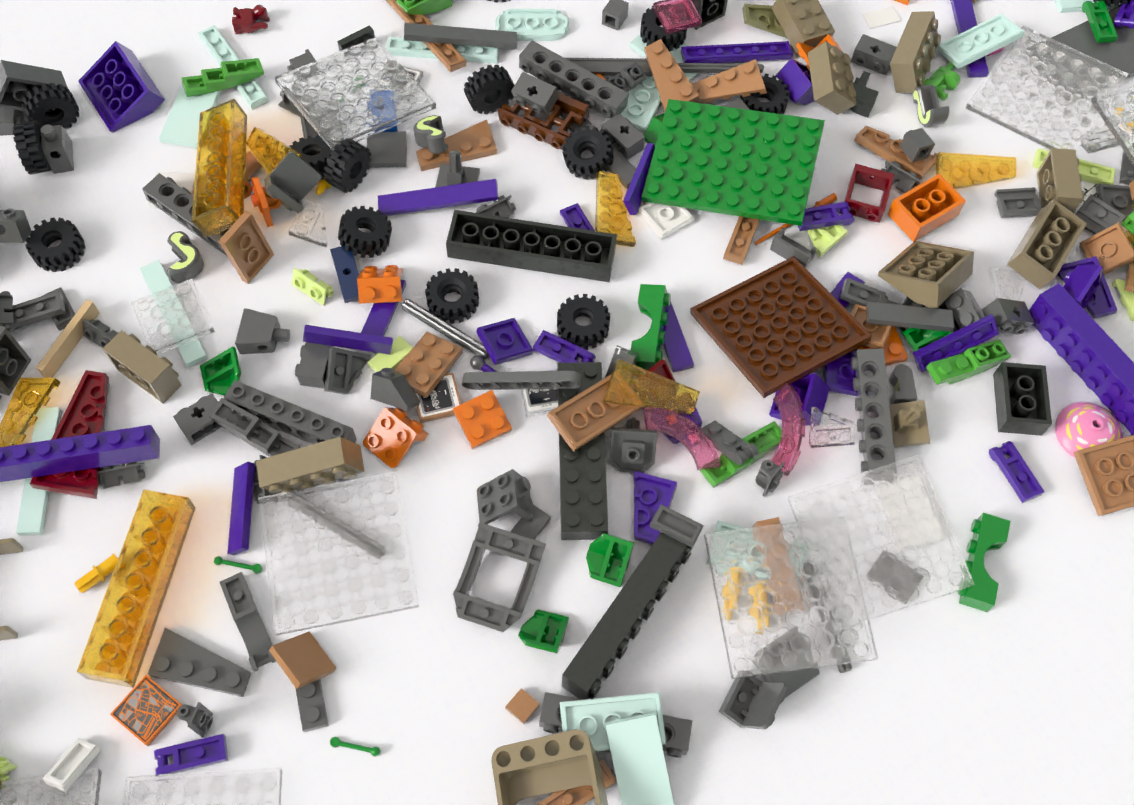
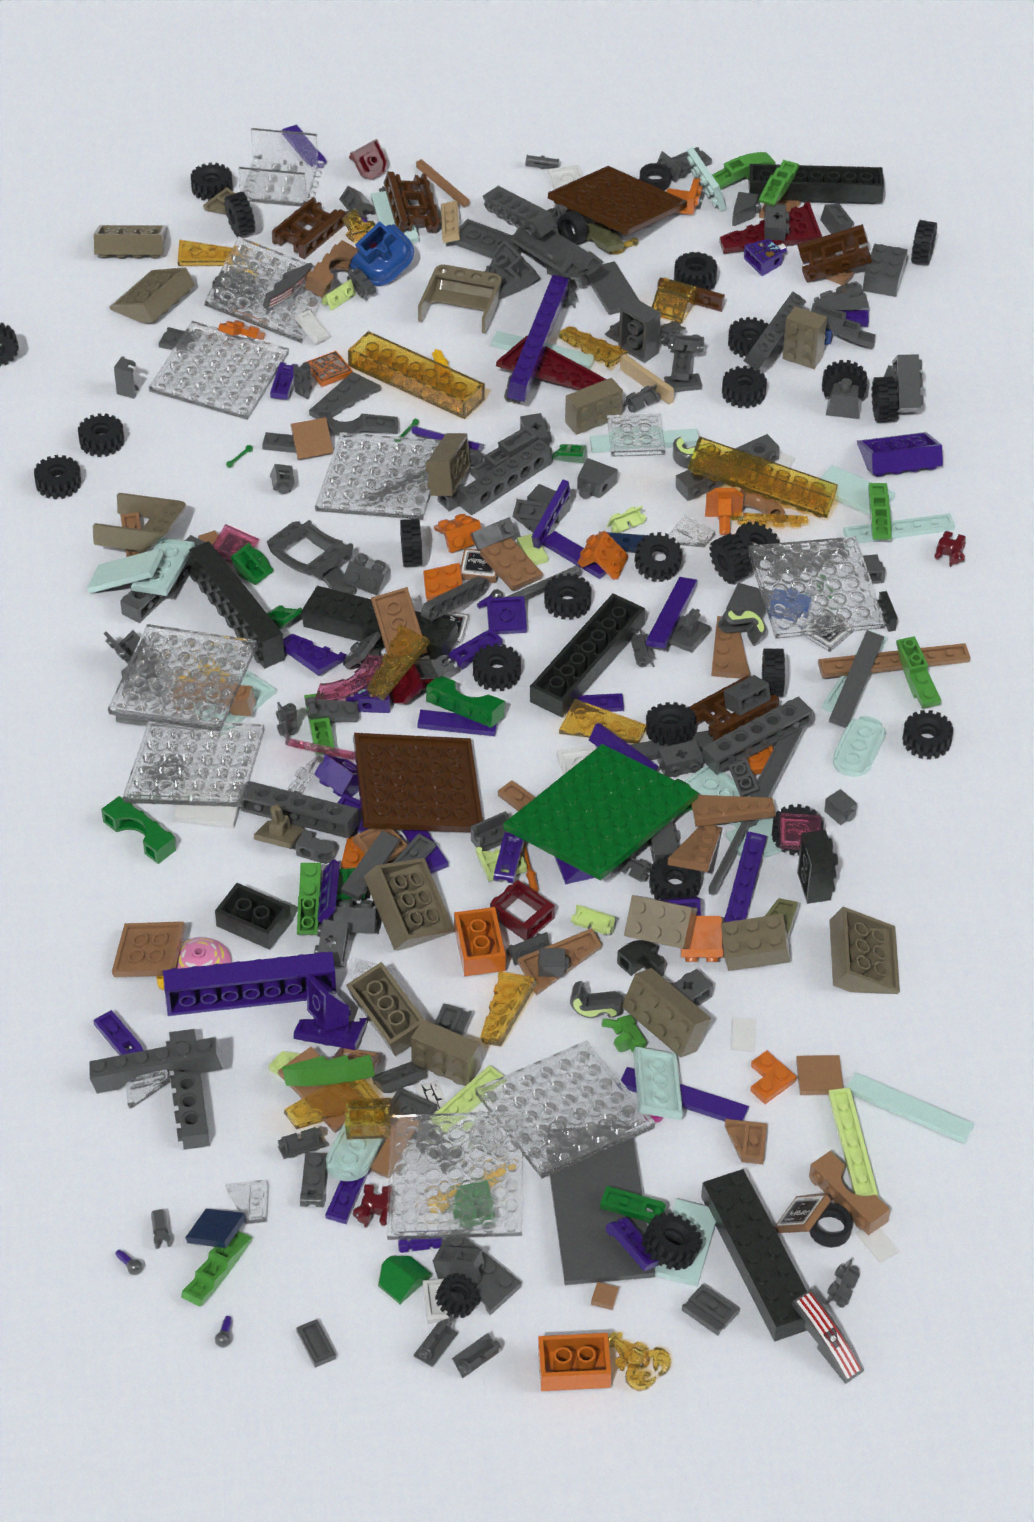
camera: 115 degrees right, 15 degrees down
(246, 247) = (670, 476): medium nougat plate -> none
(291, 181) = (720, 512): dark grey bracket -> none
(385, 665) = (282, 482): none -> dark grey brick
(449, 462) = (411, 542): none -> black tyre
(521, 671) = (232, 540): none -> clear pink tile
(676, 525) = (274, 632): dark grey tile -> none
(845, 145) = (588, 917): none -> yellowish green hinge
(1016, 471) = (196, 888): dark purple plate -> none

